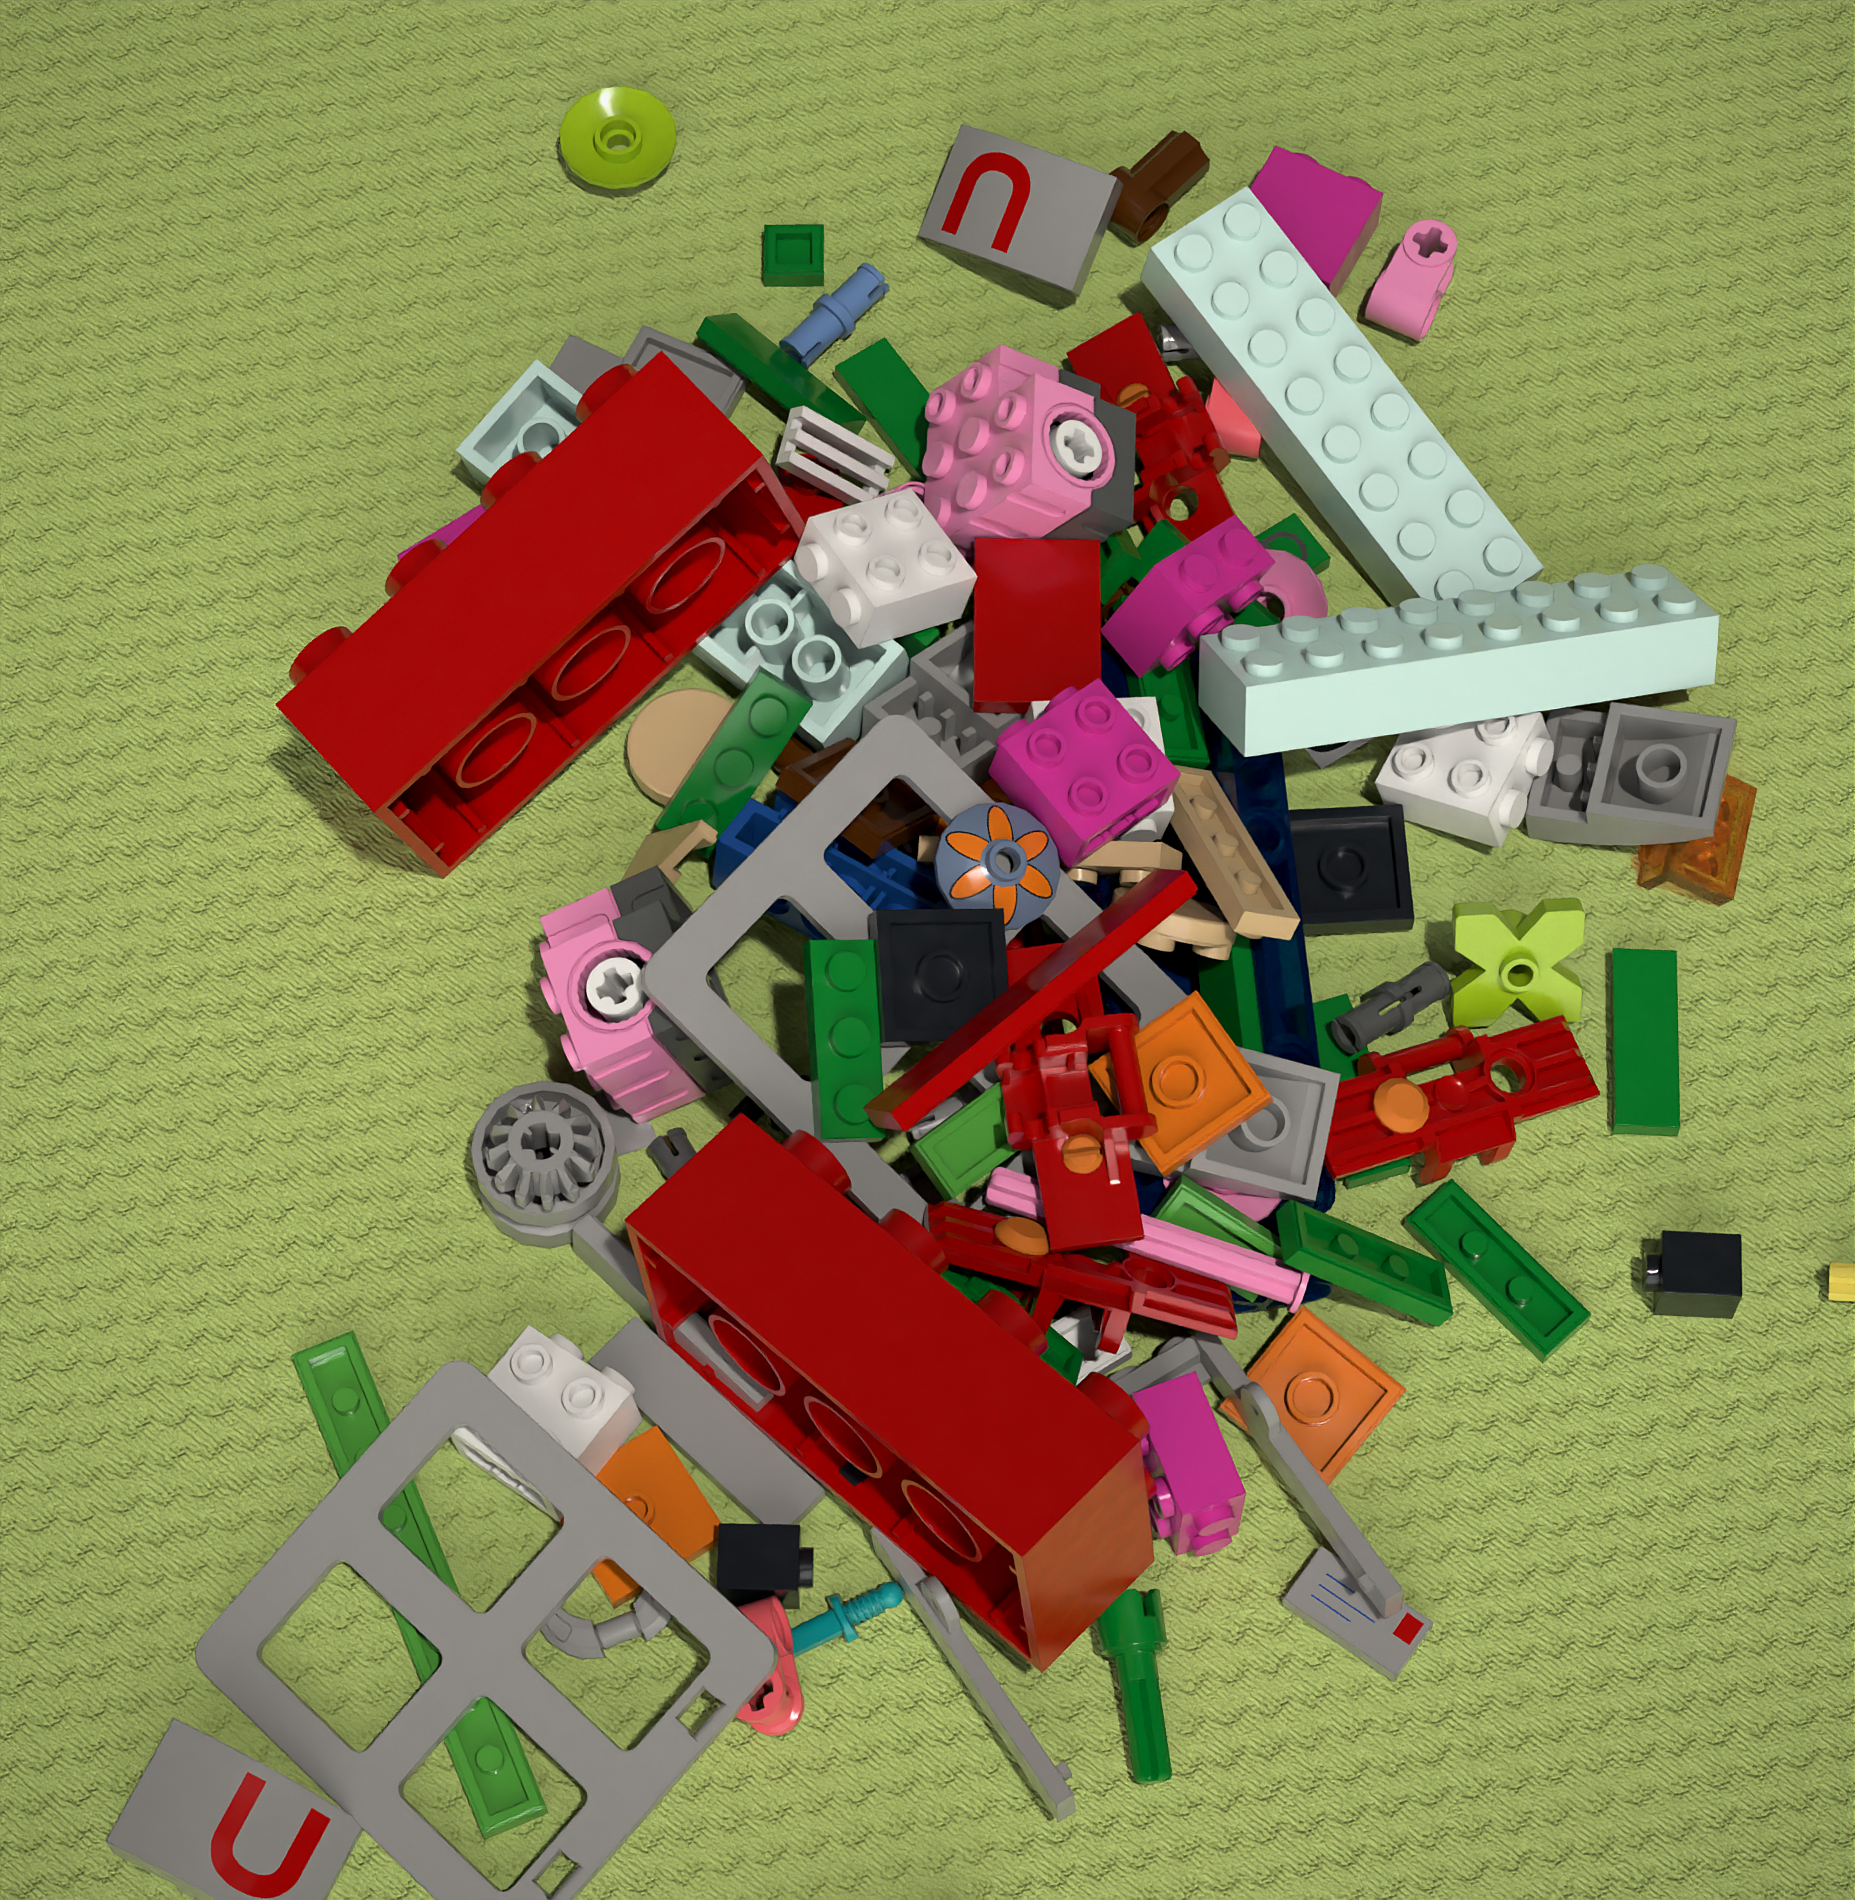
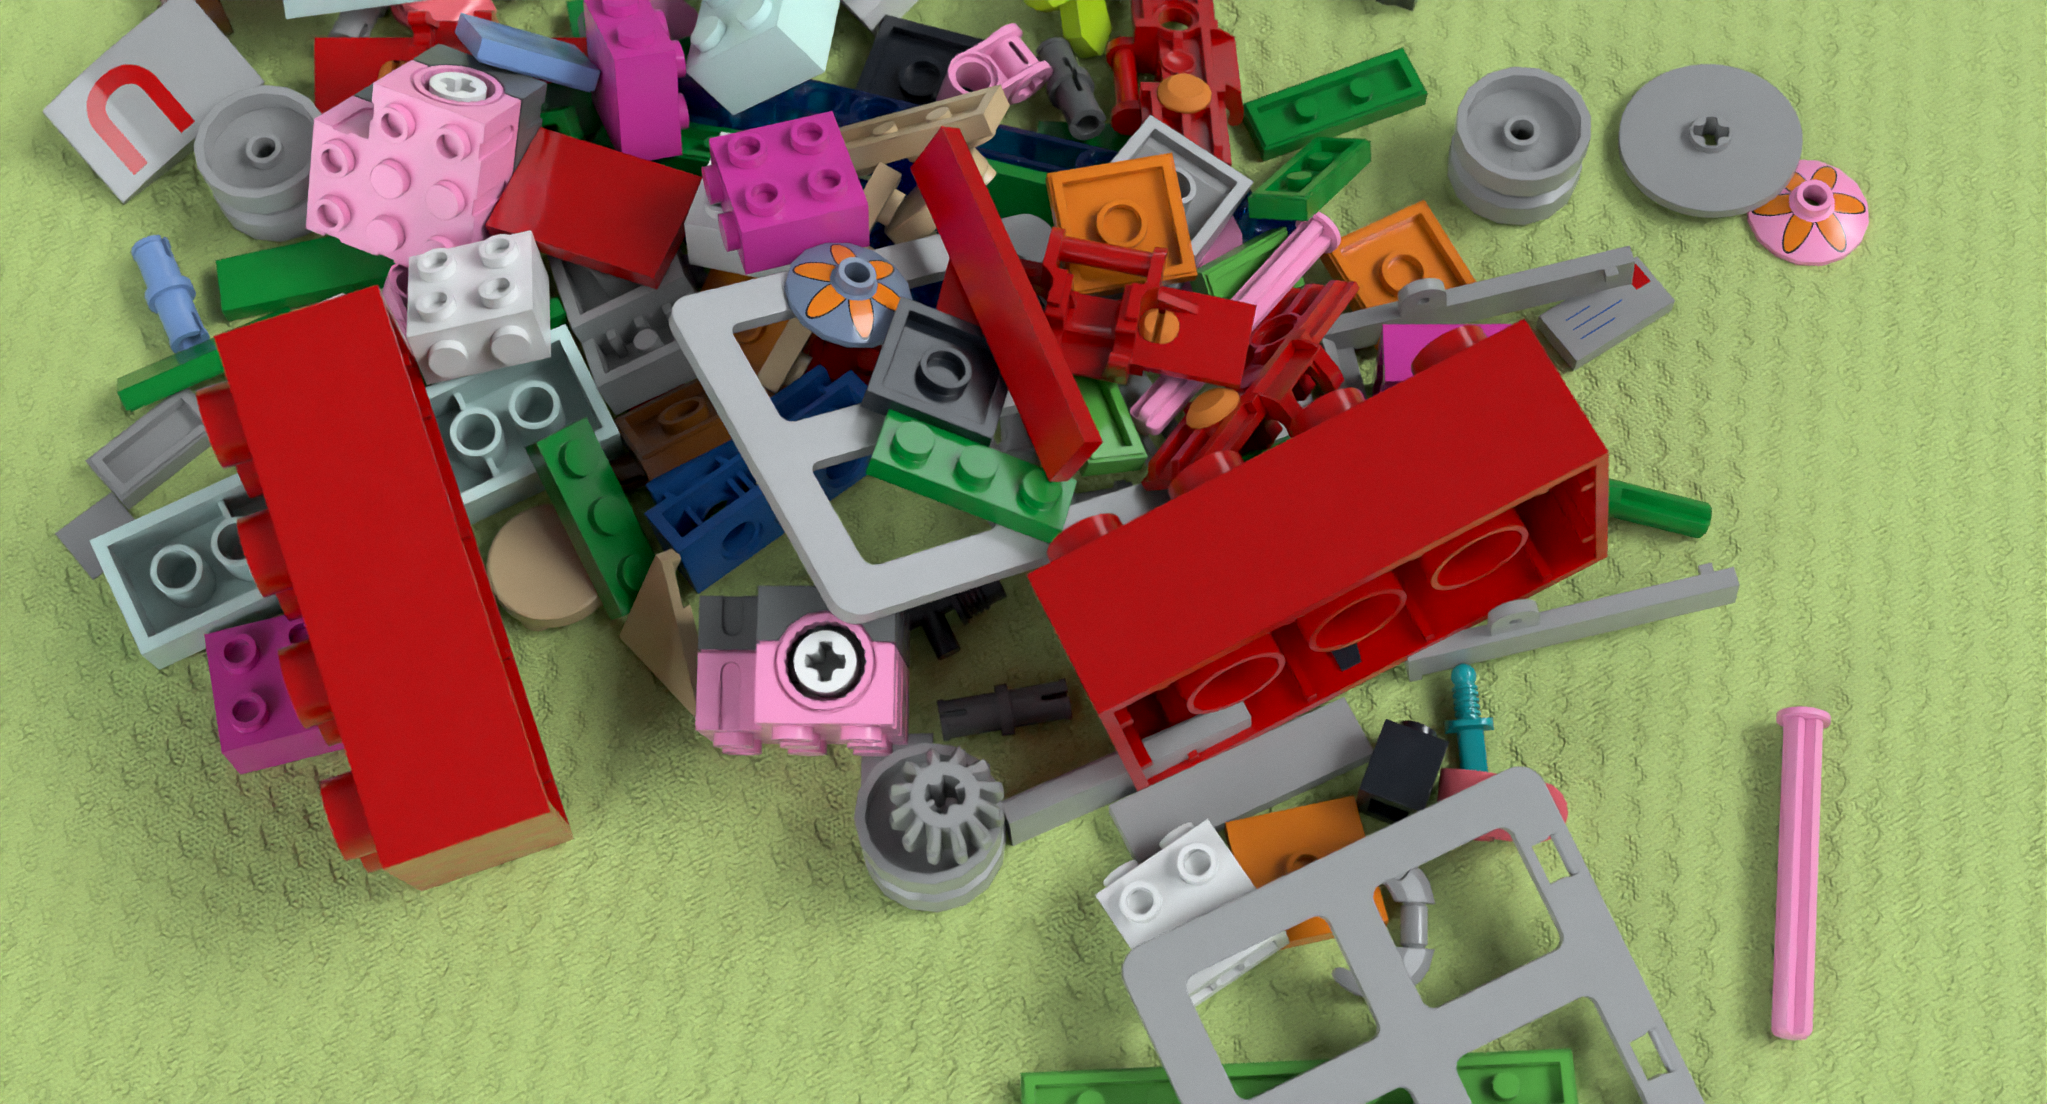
camera: 65 degrees left, 0 degrees up
(794, 255) = (84, 311): green tile -> none
(989, 306) = (259, 160): none -> light grey wheel
(1171, 488) = (527, 53): none -> medium blue tile
(1364, 926) = (996, 61): none -> bright pink piece
(1510, 1420) = (1518, 145): none -> light grey wheel
(1566, 1819) = (1809, 232): none -> bright pink dish
(1589, 1702) = (1666, 148): none -> light grey piece

